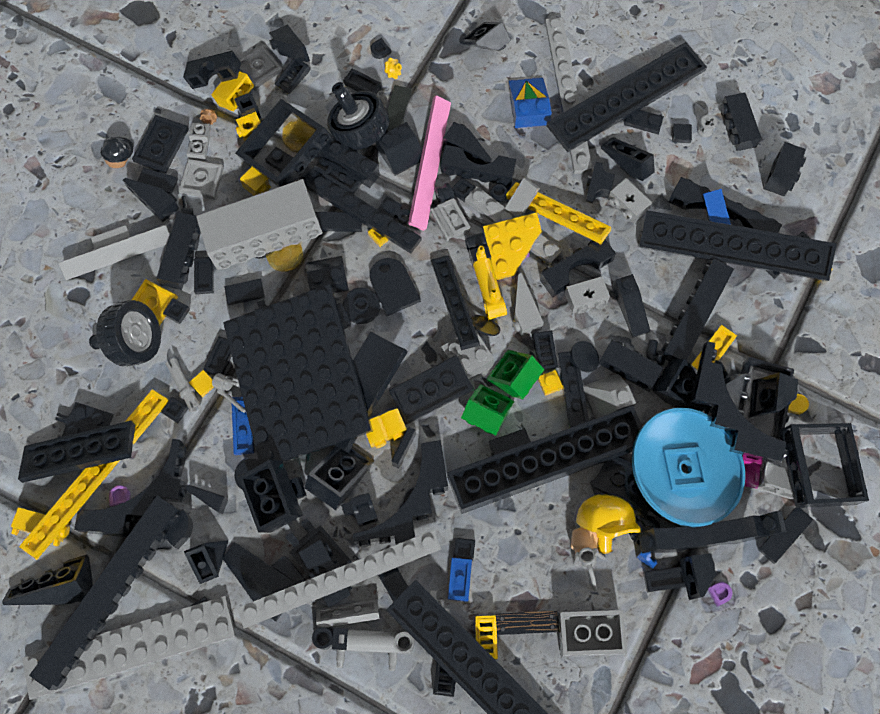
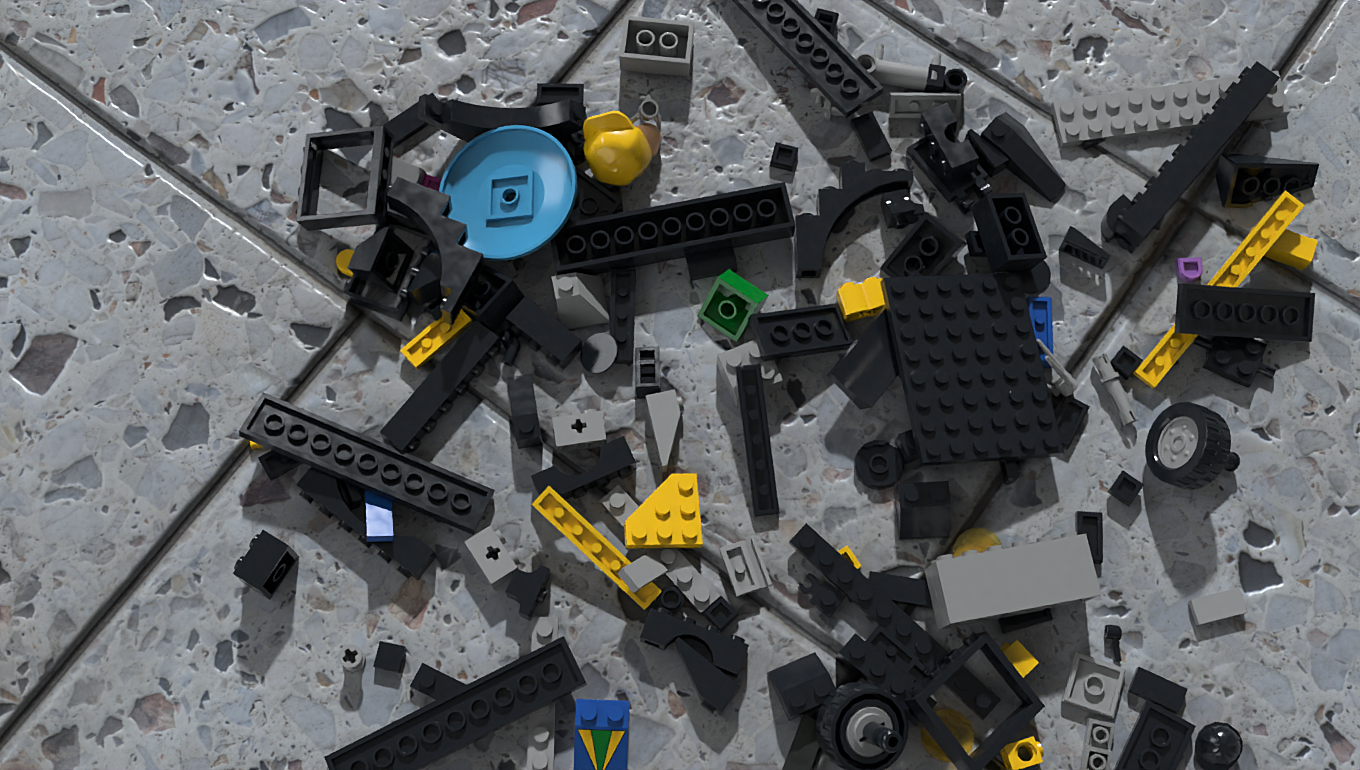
camera: 175 degrees left, 0 degrees up
(115, 252) = (1210, 584): light grey tile -> none
(117, 519) = (1189, 238): black arch -> none
(154, 198) = (1160, 656): black slope -> none
(155, 298) = (1159, 508): yellow tile -> none
(179, 252) = (1122, 572): black brick -> none
(202, 383) = (1090, 390): yellow tile -> none
(206, 559) = (1084, 183): black slope -> none
(244, 291) = (1034, 505): black tile -> none
(338, 579) = (932, 126): light grey plate -> none
(394, 286) = (833, 484): black tile -> none
(403, 447) = (842, 273): black tile -> none
(429, 163) = (762, 662): bright pink tile -> none
(444, 193) = (748, 606): black wheel -> none
(460, 579) = (794, 123): blue plate -> none
(485, 326) = (720, 408): black piece -> none
(486, 278) = (709, 478): yellow piece -> none
(487, 619) = (771, 80): yellow slope -> none
(516, 373) = (692, 343): green slope -> none
(527, 623) = (724, 73): black tile -> none
(550, 382) = (649, 330): yellow plate -> none
(631, 159) = (478, 624): black slope -> none
(698, 574) = (524, 86): black slope -> none
(720, 593) = (502, 74): medium lavender tile -> none
(740, 121) = (302, 658): black brick -> none

